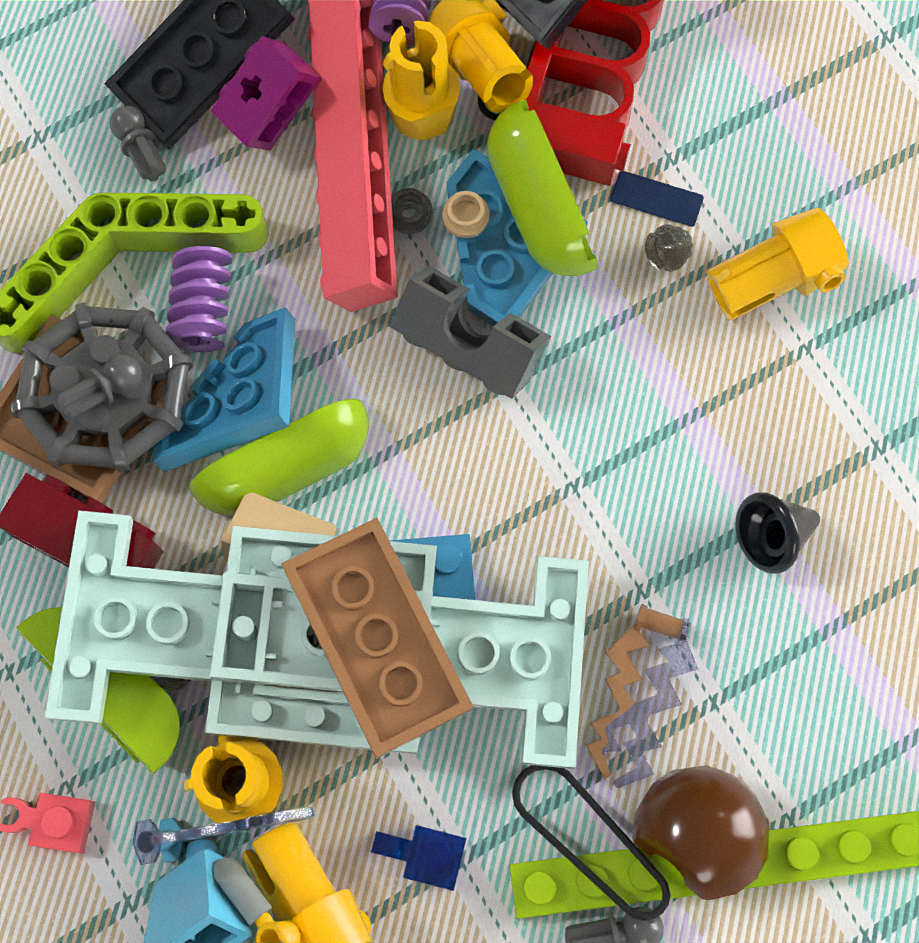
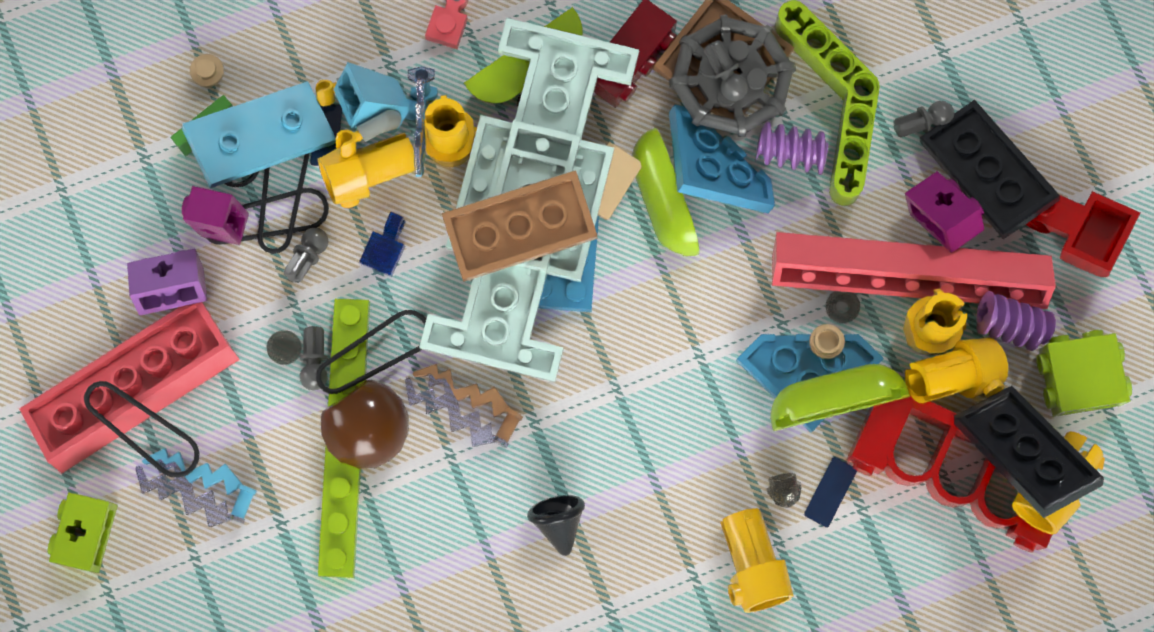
camera: 95 degrees right, 5 degrees up
(433, 319) = (748, 309): dark grey arch -> none

